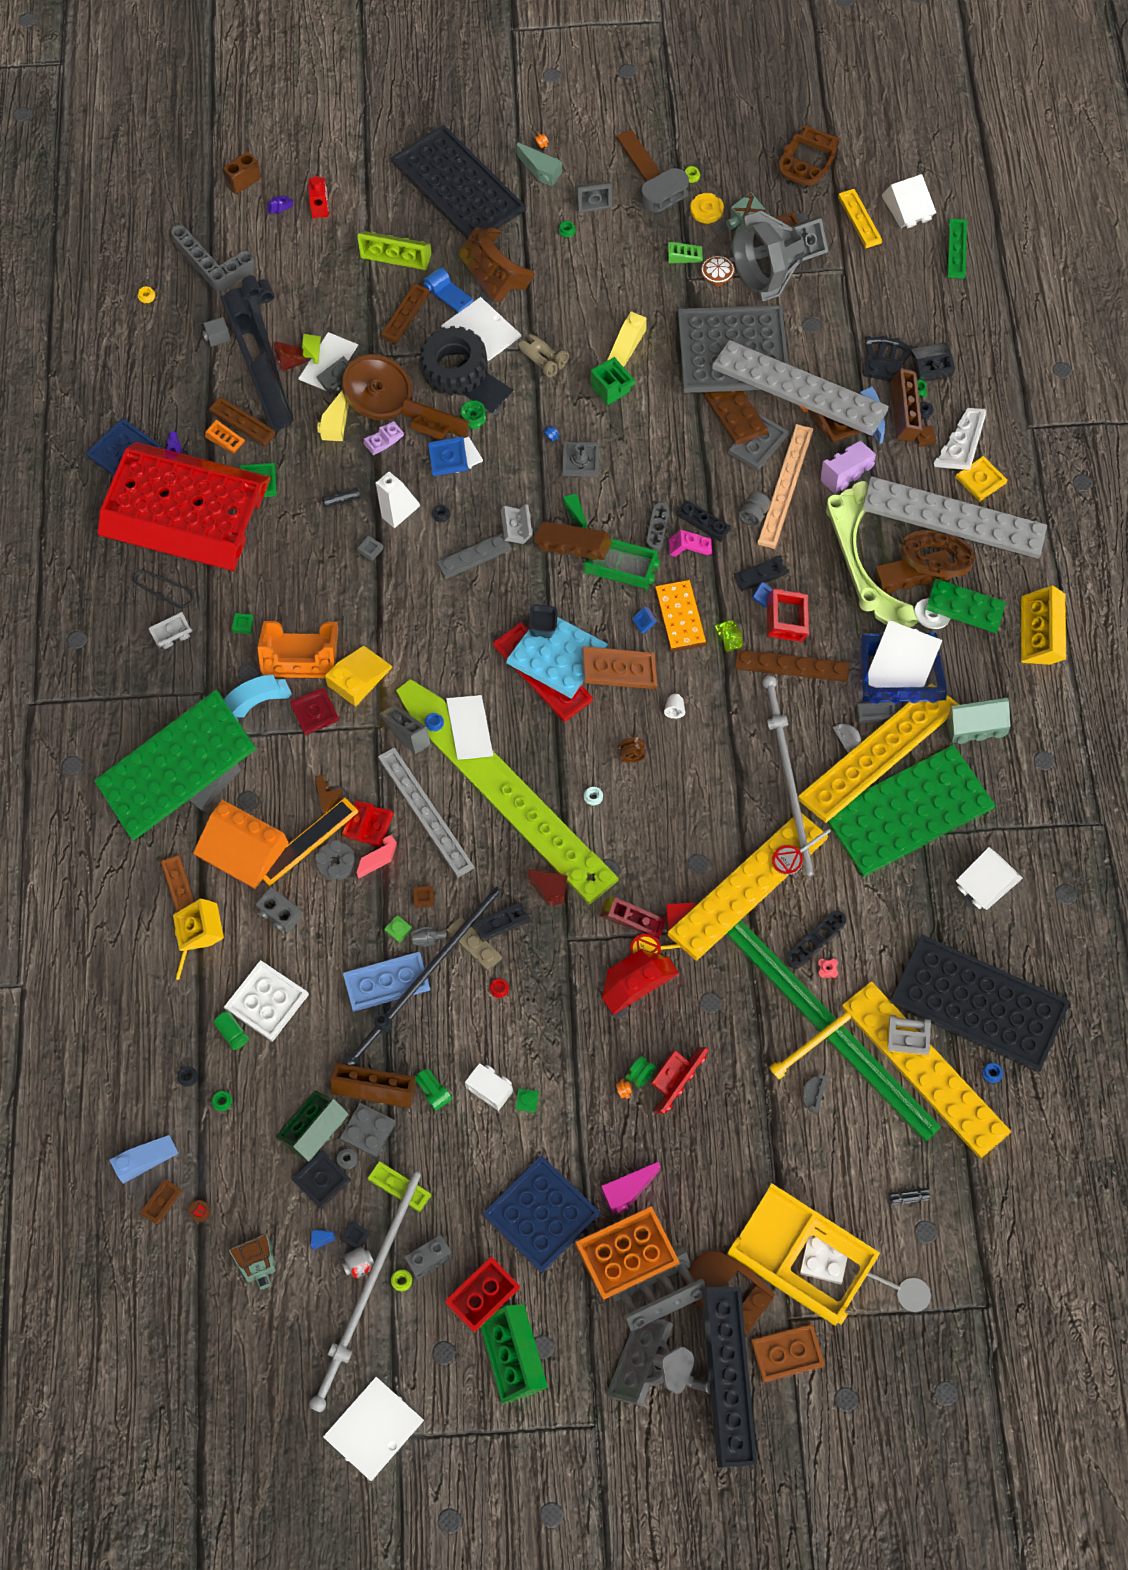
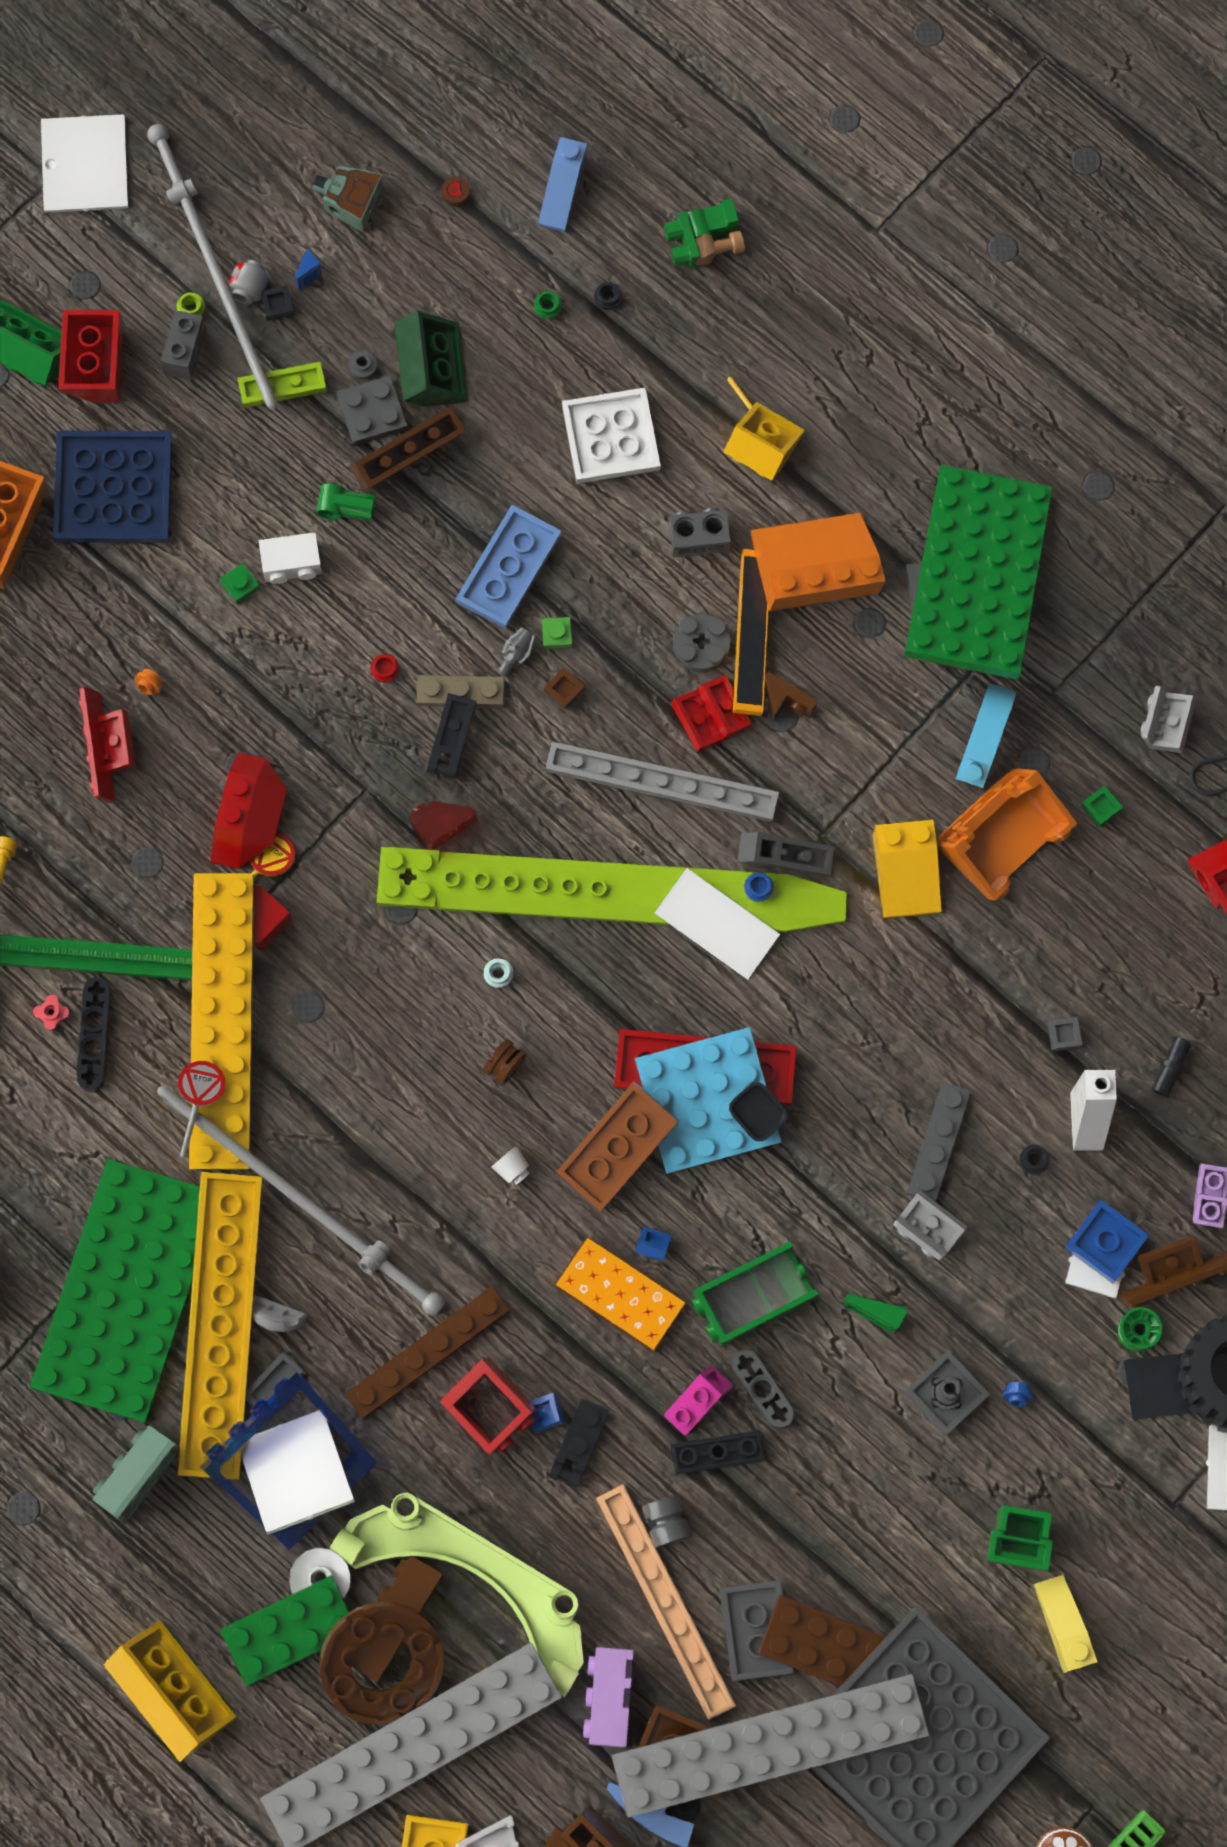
camera: 130 degrees right, 10 degrees up
(108, 1066) = (697, 233): none -> green hips
(161, 1202) = (500, 164): reddish brown plate -> none
(177, 882) = (838, 468): dark orange tile -> none
(231, 1030) = (612, 373): green piece -> none
(314, 711) = (907, 780): dark red plate -> none
(321, 1179) = (366, 322): black plate -> none
(377, 858) = (658, 687): coral piece -> none
(383, 1022) = (462, 519): black bar -> none
(537, 346) = (1160, 1489): dark tan piece -> none
(573, 540) = (835, 1257): reddish brown brick -> none
(625, 1190) = (49, 580): dark pink slope -> none
(632, 917) = (318, 869): dark red slope -> none
(640, 1072) = (145, 711): green wheel -> none
(730, 635) = (536, 1320): clear neon green bracket -> none

